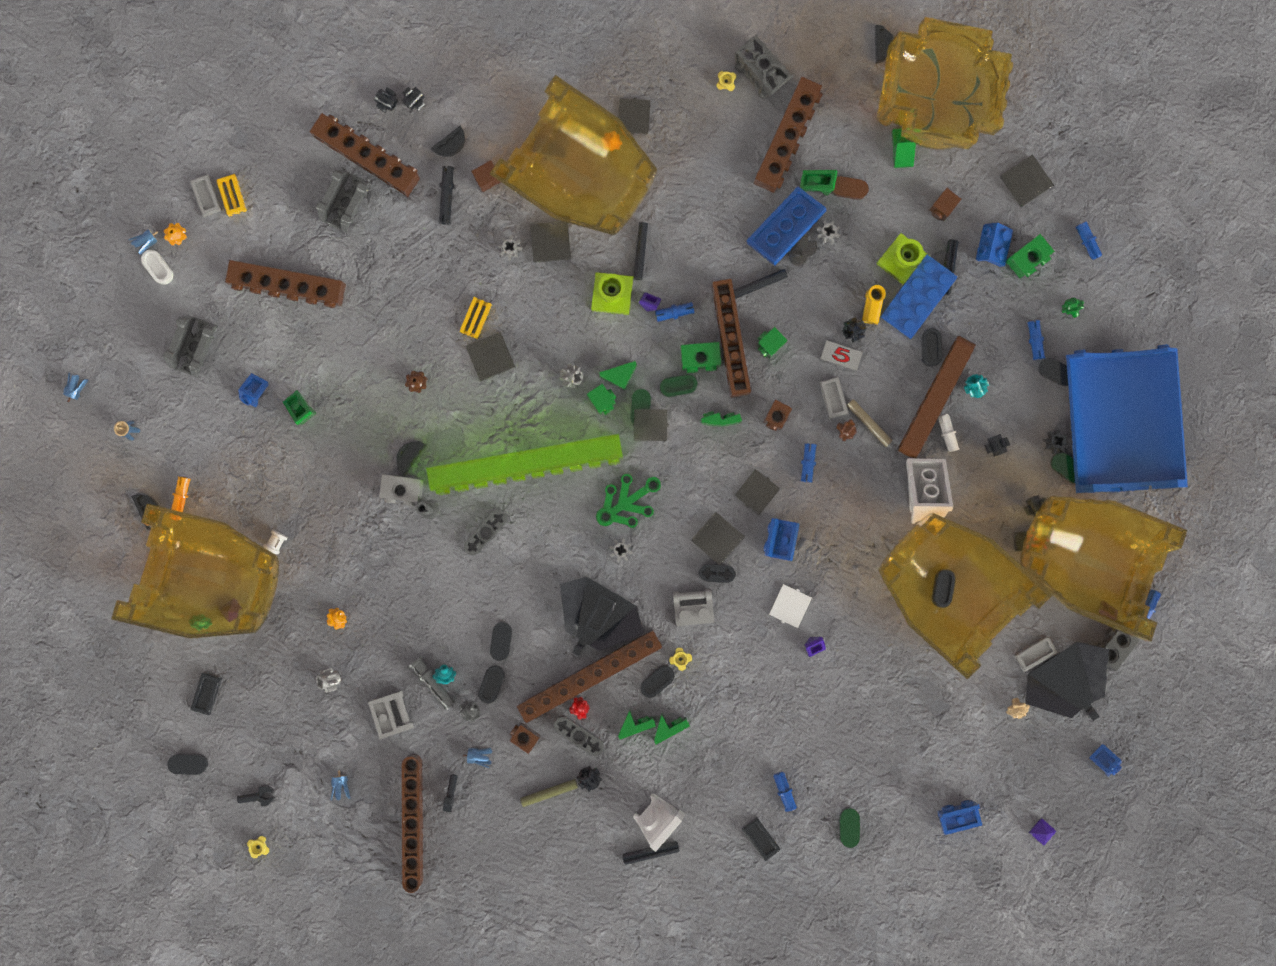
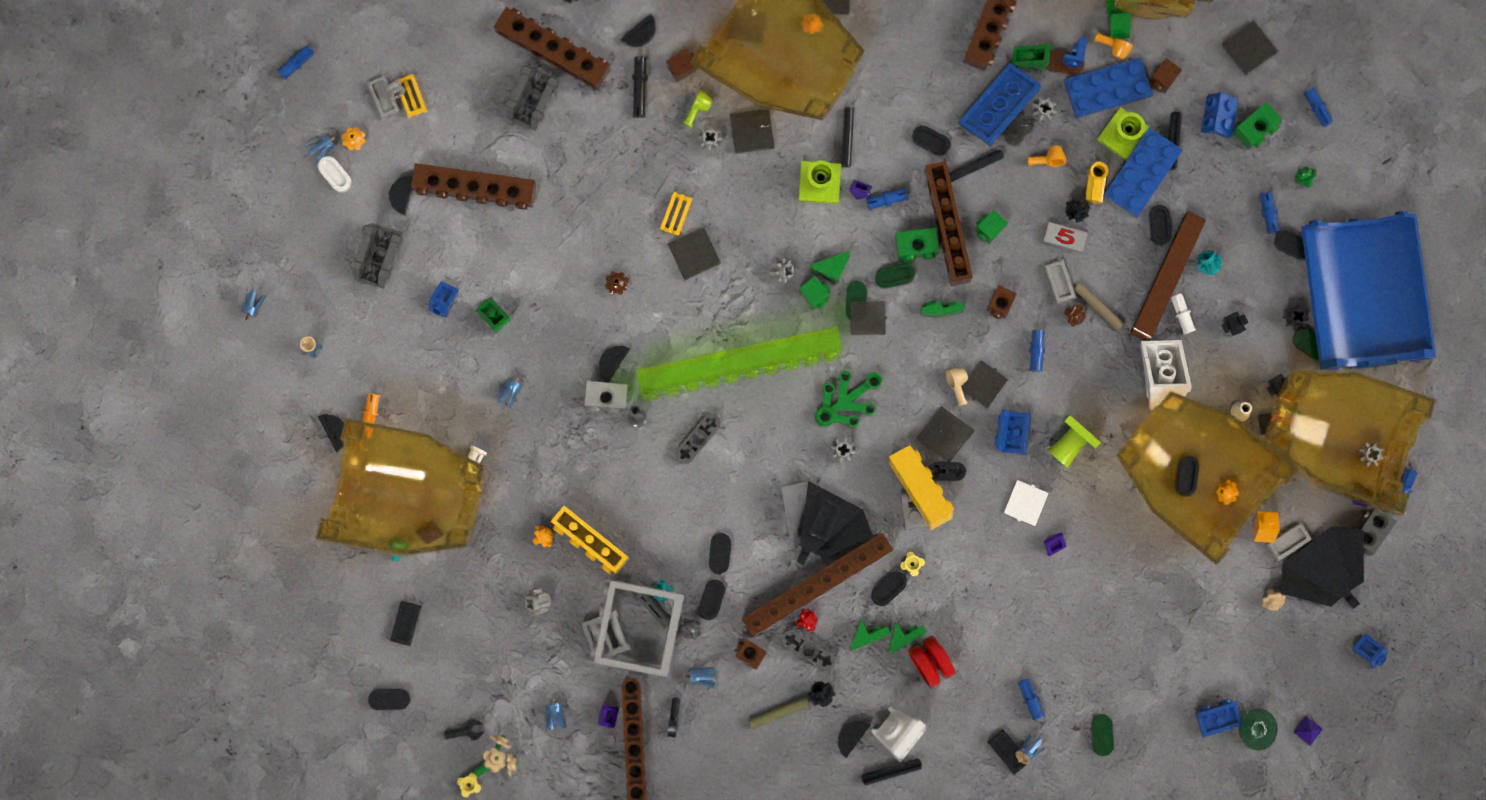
camera: 10 degrees left, 5 degrees down
(123, 158) = (295, 62): none -> blue axle
(214, 189) = (395, 90): none -> light grey bush
(217, 289) = (400, 194): none -> black tile
(280, 828) = (495, 760): none -> tan plant
(312, 477) = (510, 386): none -> flat silver piece
(378, 624) = (585, 536): none -> yellow brick
(389, 789) = (607, 716): none -> dark purple slope
(399, 669) = (671, 632): none -> light grey window
(504, 213) = (701, 103): none -> lime bar
(615, 817) = (850, 736): none -> black tile
(691, 589) = (920, 487): none -> yellow brick
(693, 754) = (930, 662): none -> red wheel
(719, 257) = (931, 140): none -> black tile
(731, 485) = (956, 378): none -> tan bar
(776, 844) = (1026, 754): none -> flat silver piece
(835, 279) = (1054, 158): none -> light orange bar
(837, 551) = (1072, 442): none -> lime plant
(864, 178) = (1079, 52): none -> blue bracket
(890, 214) = (1108, 88): none -> blue plate
(903, 175) = (1120, 48): none -> light orange bar
(980, 605) = (1227, 492): none -> light orange plant
(994, 528) = (1237, 411): none -> cone
(1002, 832) = (1266, 729): none -> clear green dish
(1015, 640) = (1266, 526): none -> light orange brick
(1123, 577) = (1374, 457): none -> light grey gear

